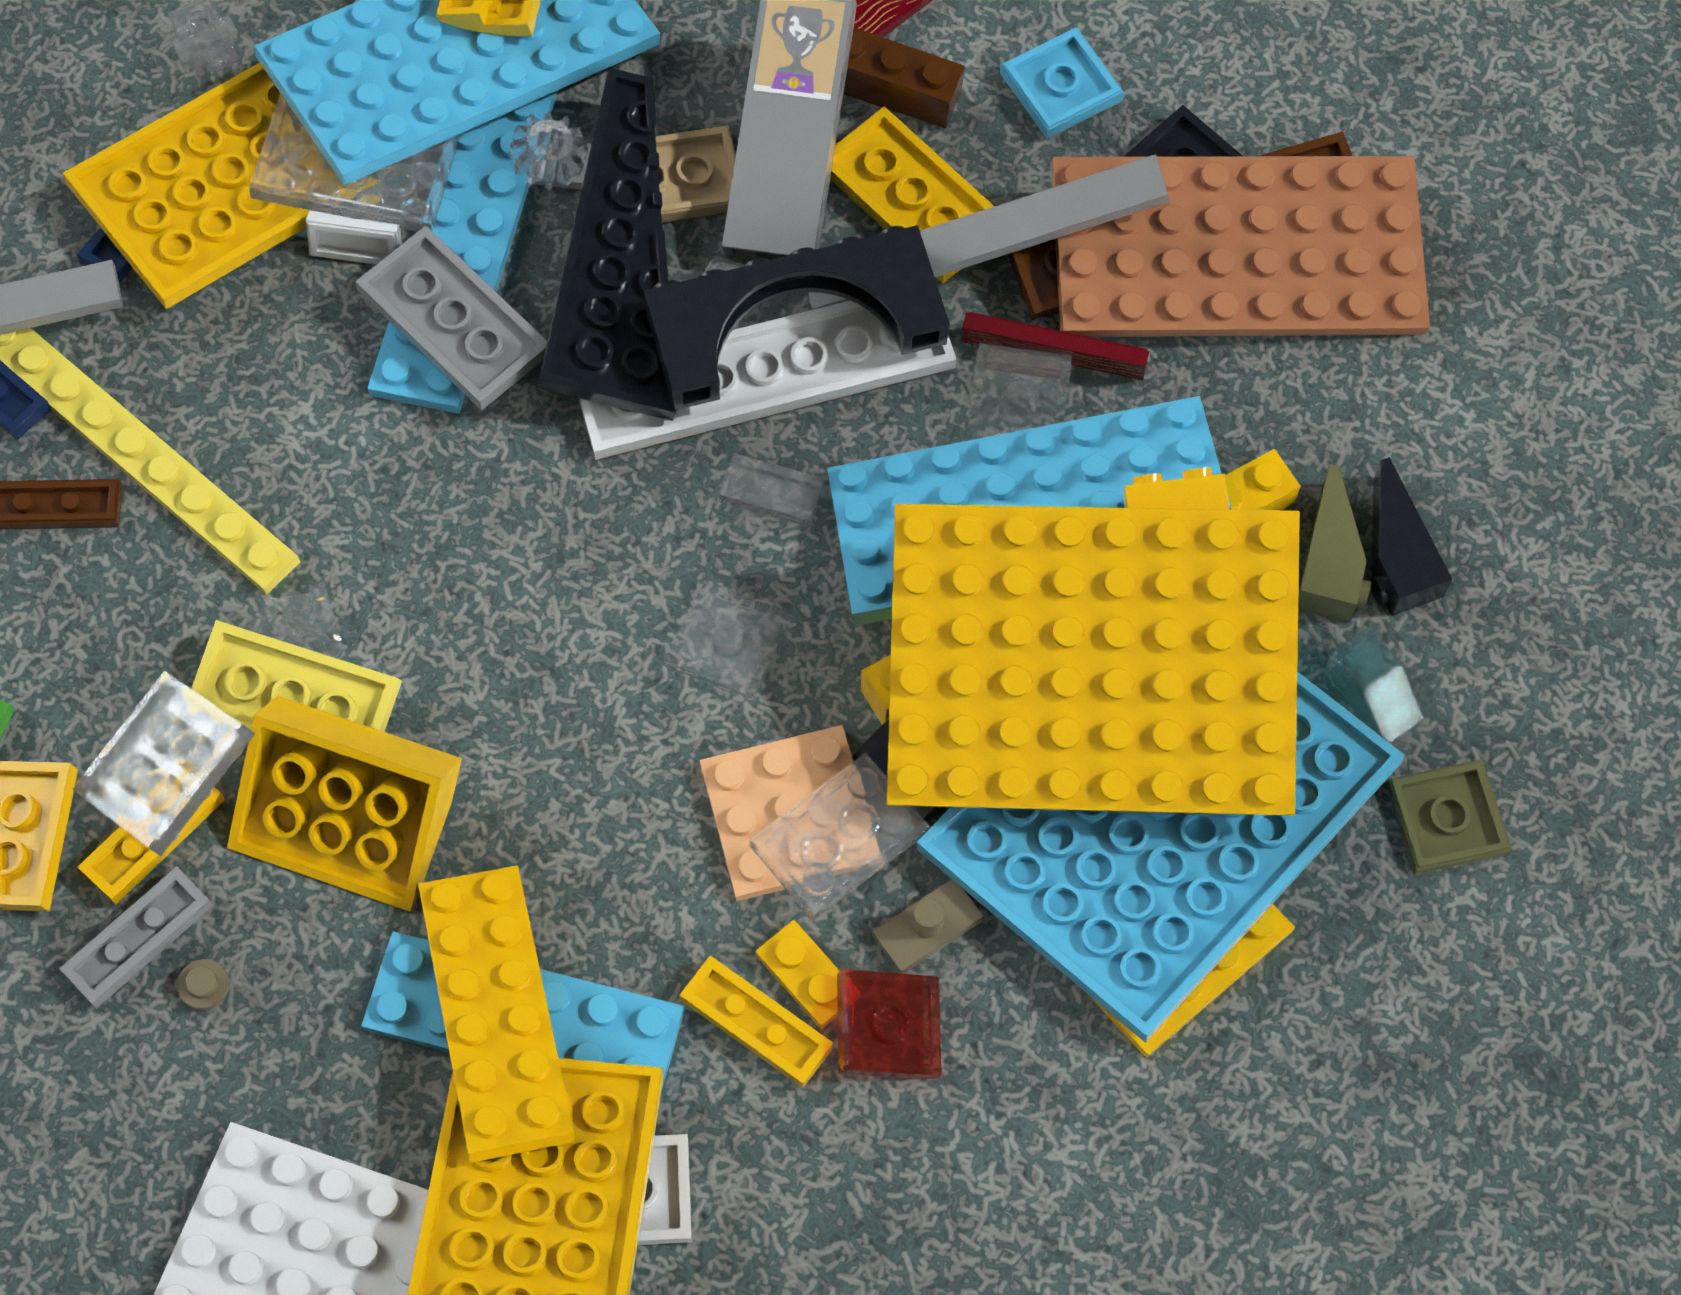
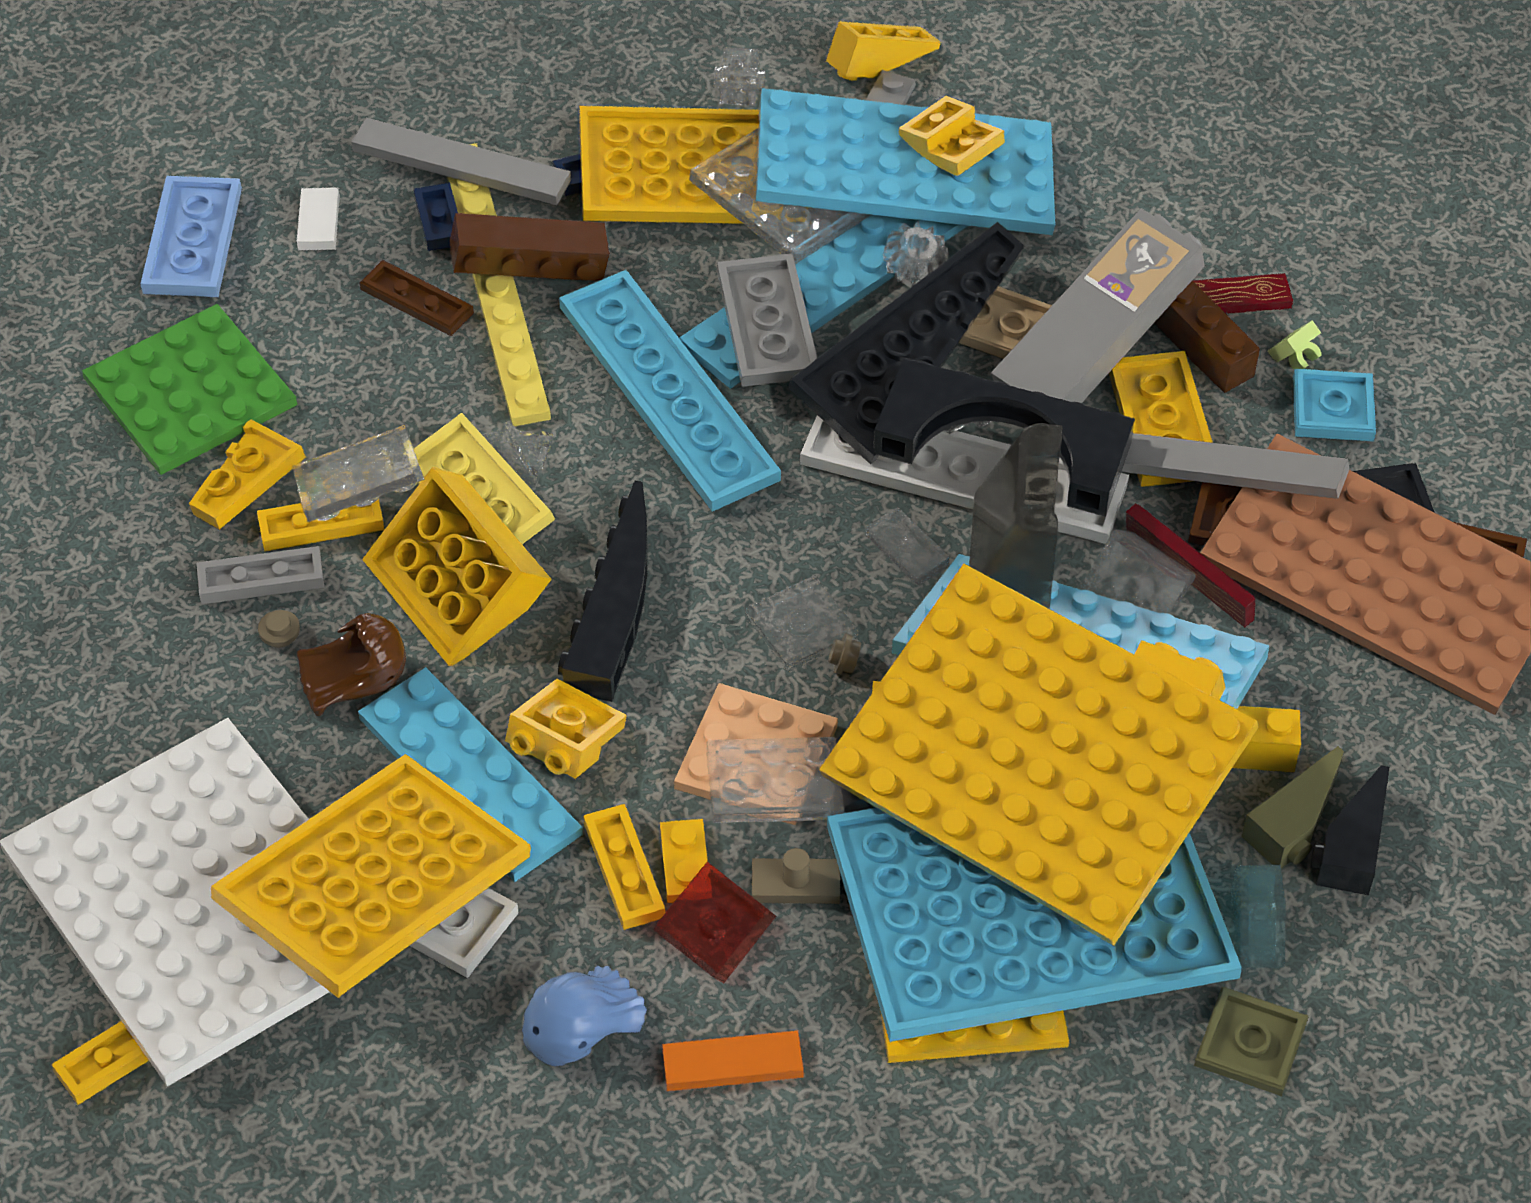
camera: 35 degrees right, 15 degrees down
(135, 378) = (529, 247): none -> reddish brown brick
(319, 982) = (354, 665): none -> reddish brown piece
(350, 238) = (736, 239): white tile -> none
(401, 454) = (670, 390): none -> medium azure plate
(495, 1014) = (445, 747): yellow plate -> none
(532, 739) = (612, 607): none -> black slope
(587, 911) = (563, 728): none -> yellow plate
(799, 650) = (844, 654): none -> dark tan plate
(836, 1209) = (579, 1011): none -> medium blue piece
(890, 444) = (1016, 516): none -> clear smoke windscreen
(980, 36) = (1296, 344): none -> yellowish green tile
(1007, 1156) = (732, 1060): none -> orange tile

